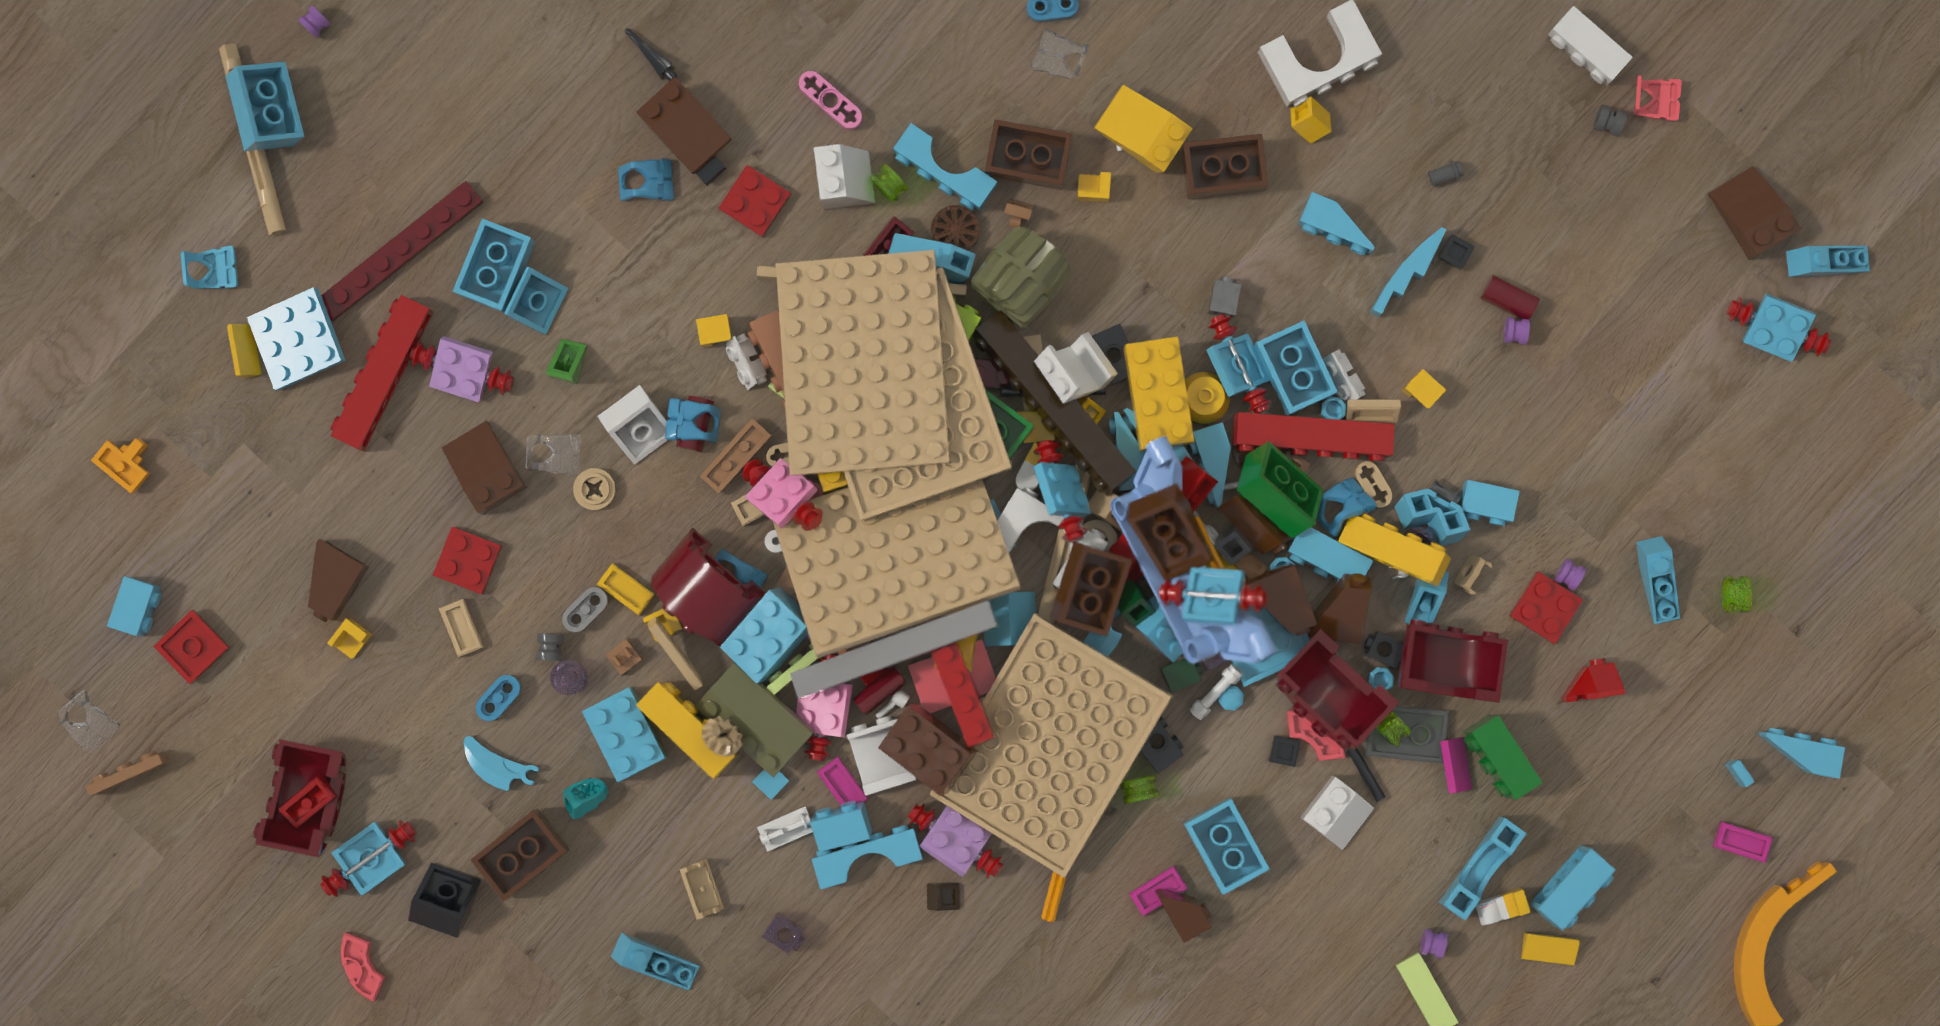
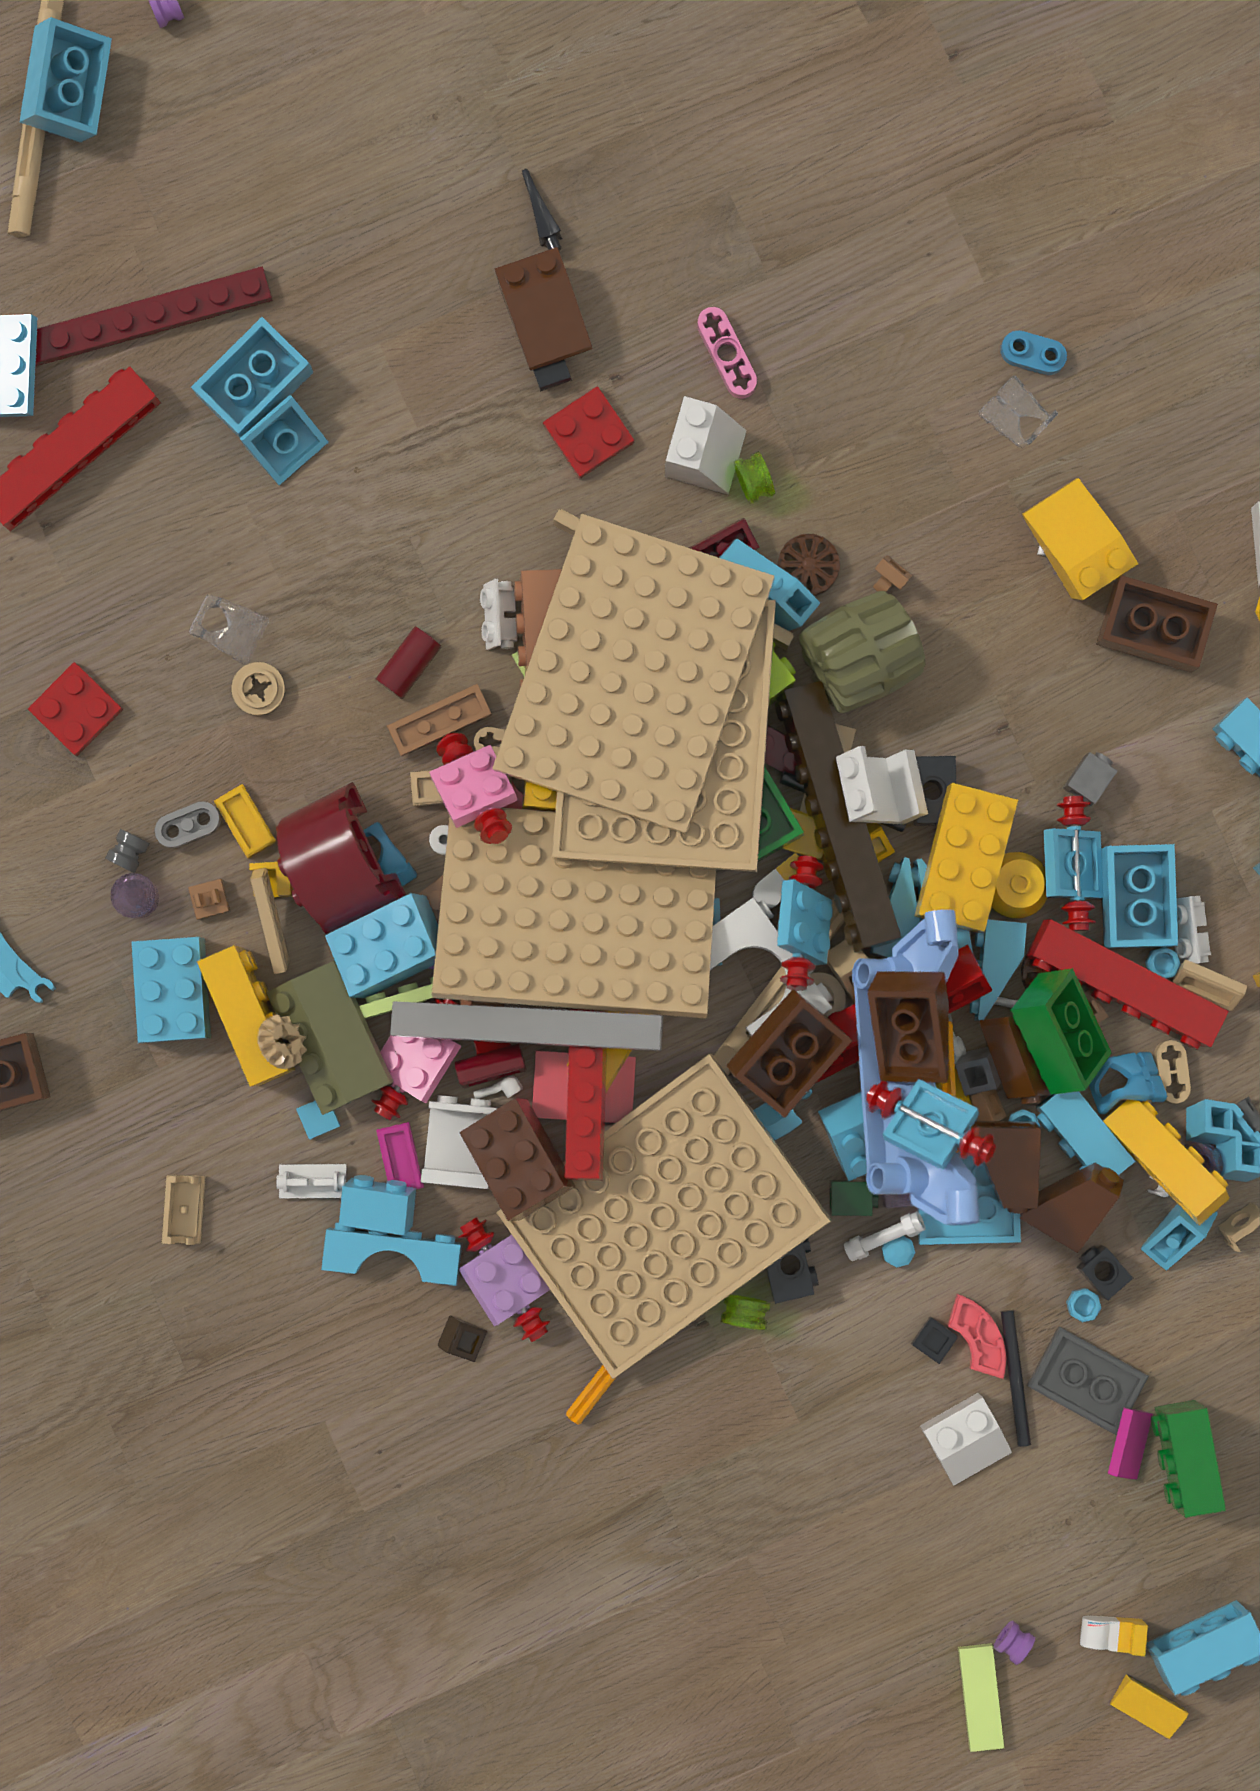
camera: 20 degrees right, 0 degrees up
(461, 369) = (163, 482): lavender plate -> none
(461, 628) = (35, 784): tan tile -> none
(483, 468) = (140, 610): reddish brown slope -> none
(498, 697) = (43, 883): dark azure plate -> none
(567, 361) = (290, 526): bright green slope -> none
(584, 796) = (93, 1042): teal rock -> none
(635, 424) = (339, 634): white slope -> none
(654, 961) = (91, 1270): medium azure slope -> none
(657, 180) = (487, 355): dark azure piece -> none
(682, 418) = (393, 655): dark azure piece -> none
(713, 330) = (476, 562): yellow panel -> none
(772, 936) = (242, 1299): brick -> none
(971, 187) = (849, 523): medium azure arch -> none
(1012, 616) = (683, 1045): medium azure slope -> none
(1028, 154) = (931, 512): reddish brown brick -> none
(1094, 187) = (992, 584): yellow panel -> none
(1135, 603) = (833, 1092): dark green brick -> none
(1145, 895) = (716, 1440): dark pink tile -> none
(1185, 913) = (737, 1482): reddish brown slope -> none
(1226, 846) = (819, 1423): medium azure brick -> none
(1333, 694) = (1022, 1299): dark red cylinder -> none
(1393, 729) = (1073, 1366): clear neon green wheel -> none
(1452, 662) = (1179, 1321): dark red cylinder -> none
(1489, 855) = (1130, 1563): medium azure arch -> none

